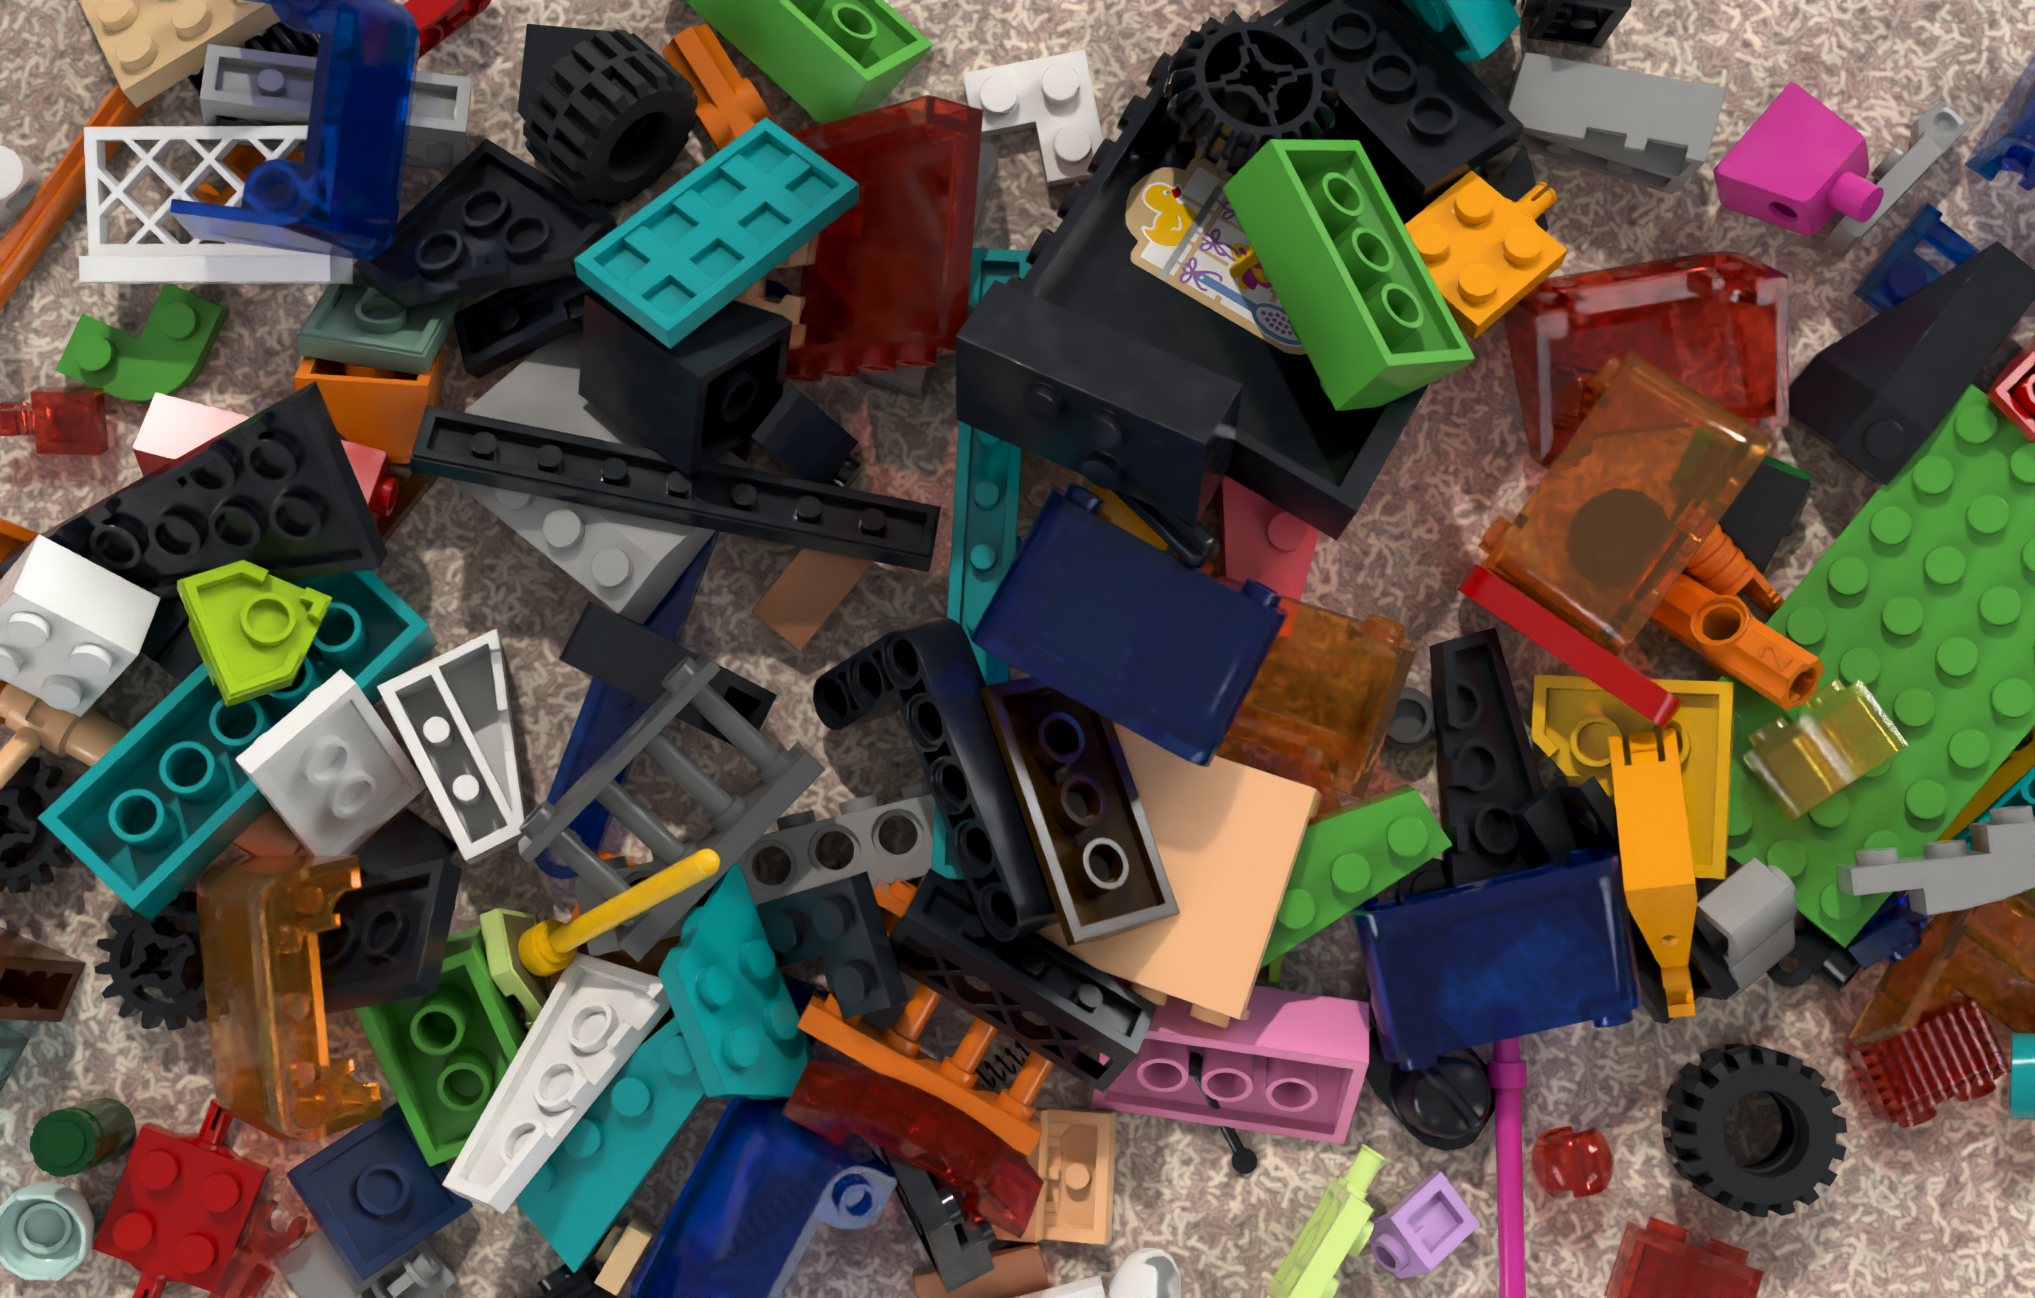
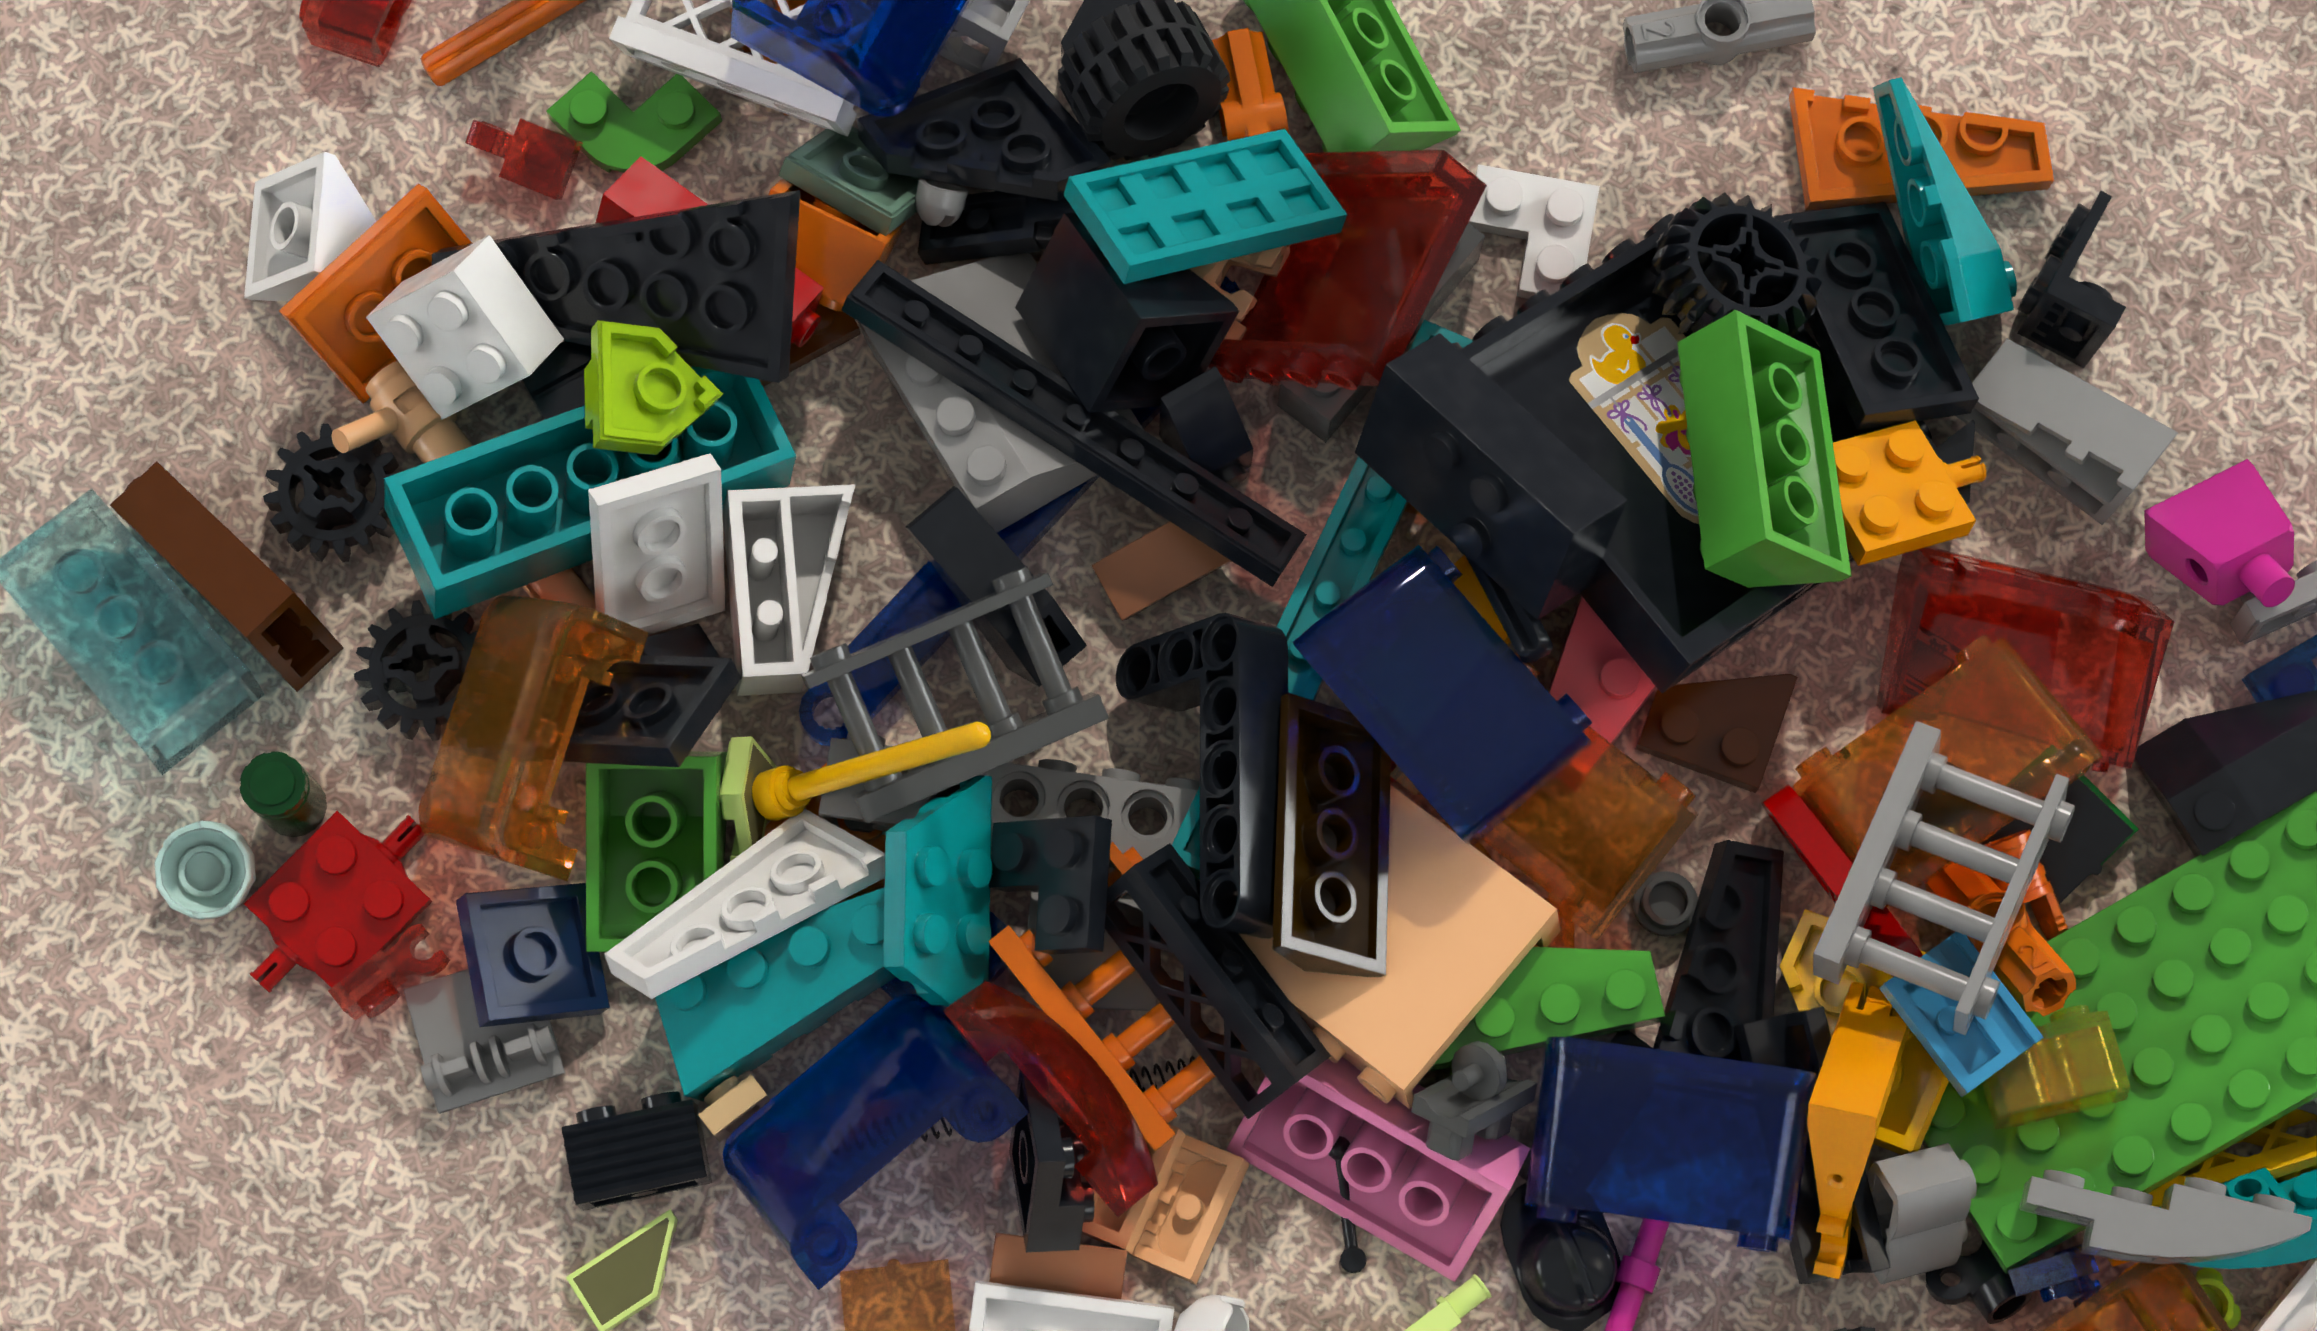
camera: 15 degrees right, 10 degrees down
(465, 317) = (940, 202): none -> light grey hinge
(1303, 996) = (1471, 1101): none -> dark grey hips
(1396, 532) = (1719, 726): none -> reddish brown wing
(1607, 650) = (1875, 885): none -> light grey fence
(1728, 737) = (1930, 1017): none -> dark azure plate

